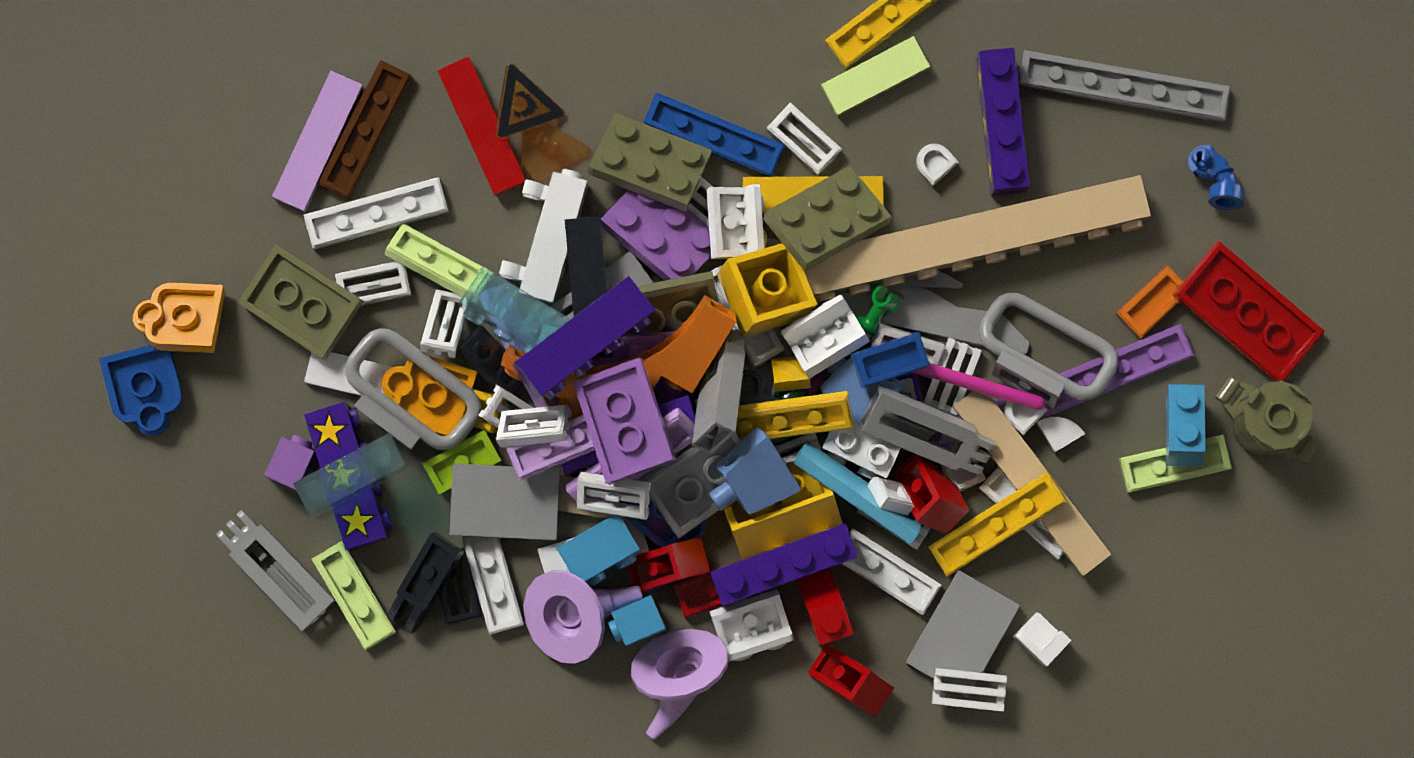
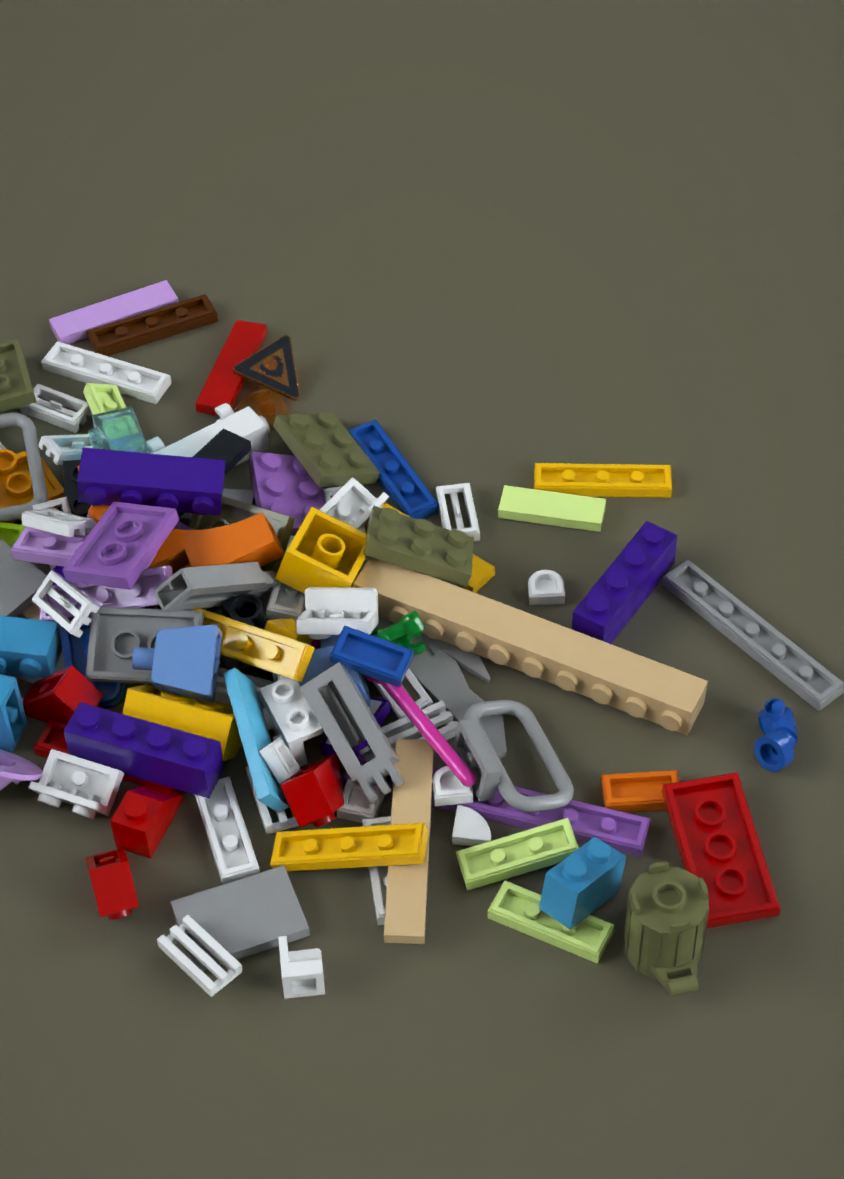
camera: 40 degrees right, 35 degrees down
(1112, 429) = (516, 854): none -> yellowish green tile

